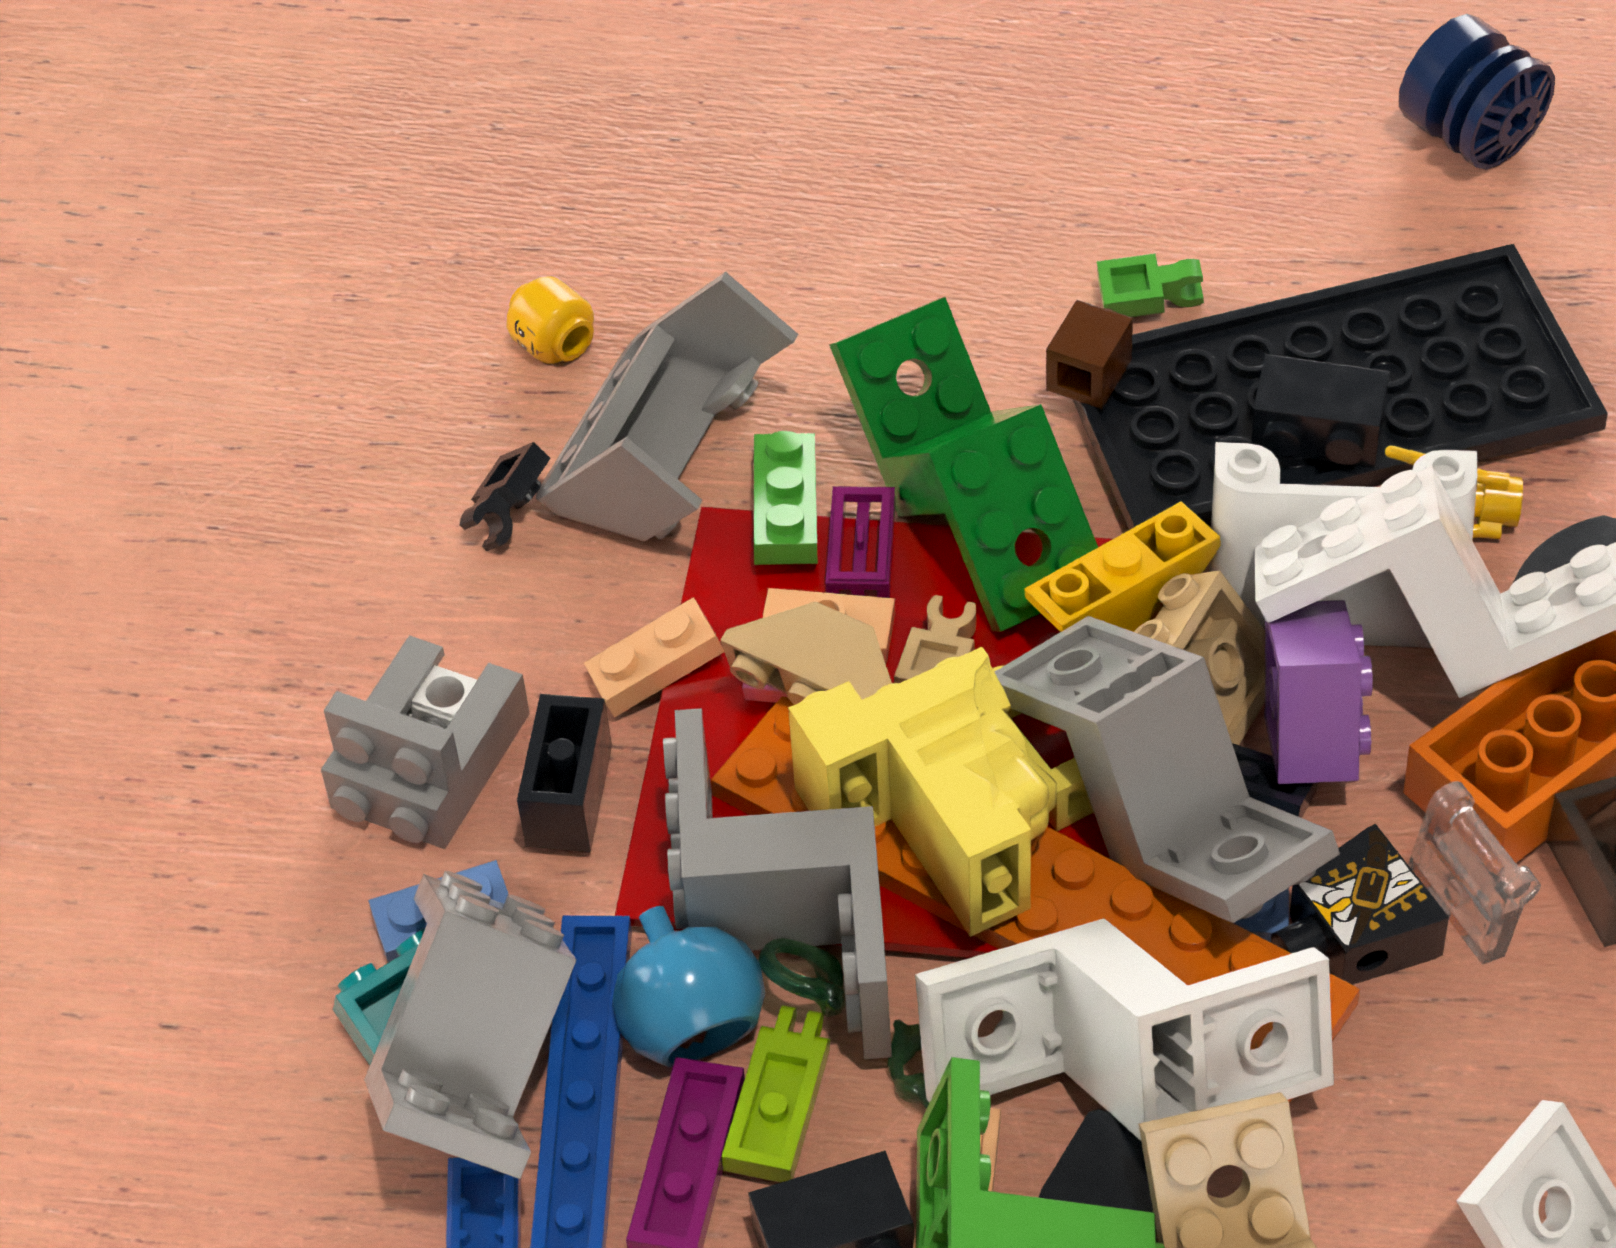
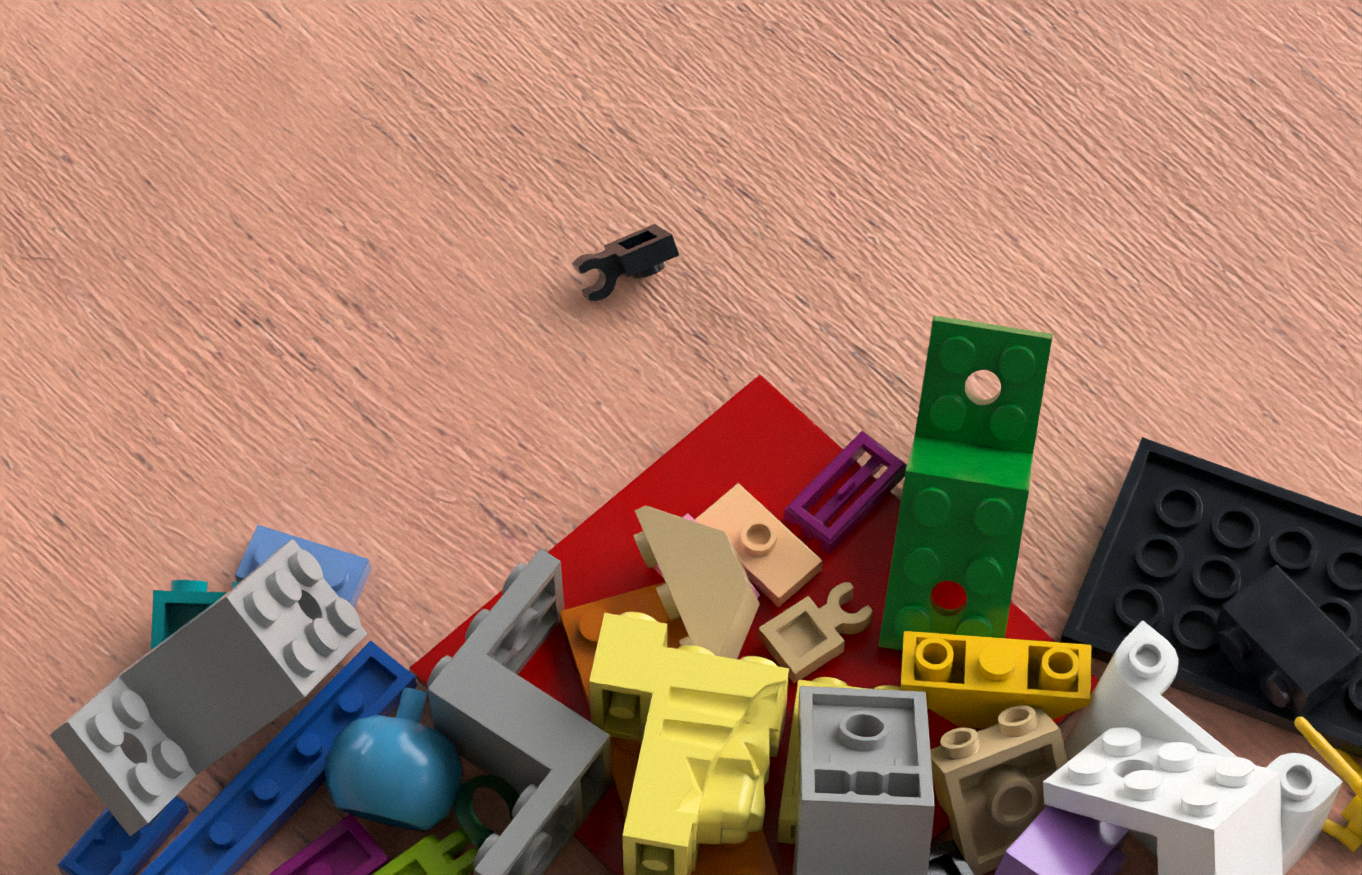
camera: 35 degrees right, 10 degrees up
(420, 743) = (378, 431): light grey brick -> none
(550, 320) = (786, 133): yellow head -> none
(564, 772) = (464, 527): black brick -> none
(654, 657) = (613, 477): light nougat plate -> none
(655, 409) = (785, 272): light grey windscreen -> none
(785, 498) = (822, 413): bright green plate -> none
(1089, 354) = (1152, 459): reddish brown brick -> none
(1139, 285) = (1263, 420): bright green plate -> none

